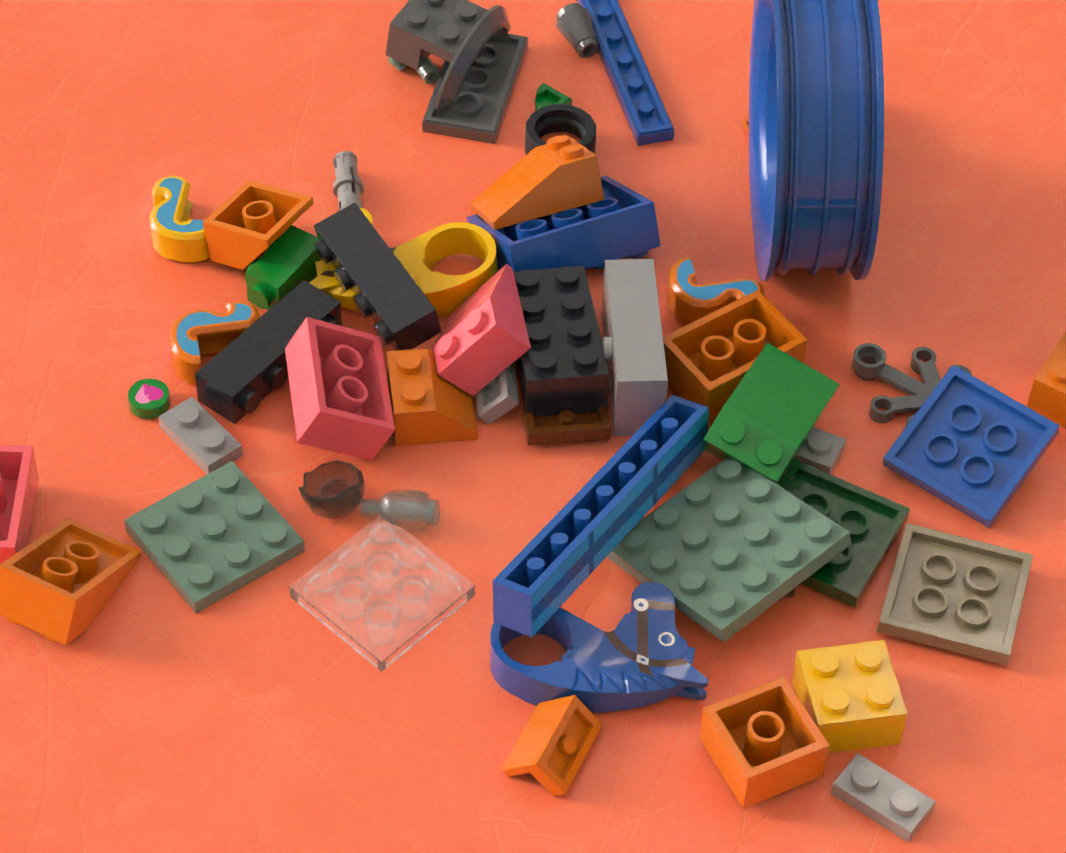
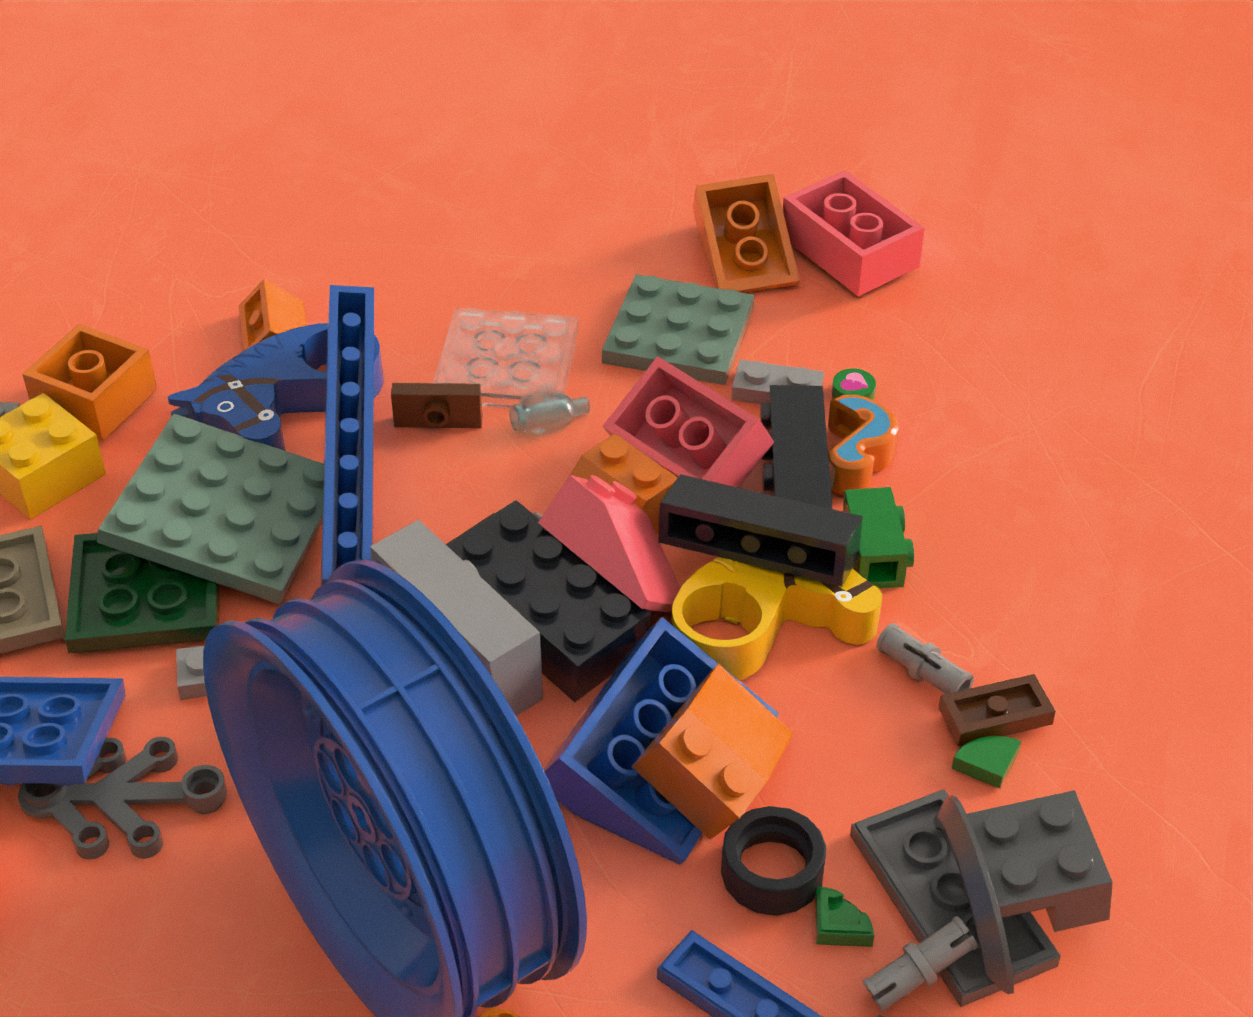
camera: 145 degrees right, 5 degrees down
(171, 229) = (1029, 520): yellow animal -> none
(251, 222) = (940, 532): orange slope -> none
(333, 135) = (996, 709): none -> reddish brown plate
(333, 489) = (610, 378): clear smoke hair -> none
(375, 125) = (987, 758): none -> green tile
(476, 552) = (437, 405): none -> reddish brown plate
(561, 57) = (920, 963): none -> light grey pin
(770, 414) = (252, 588): green slope -> none

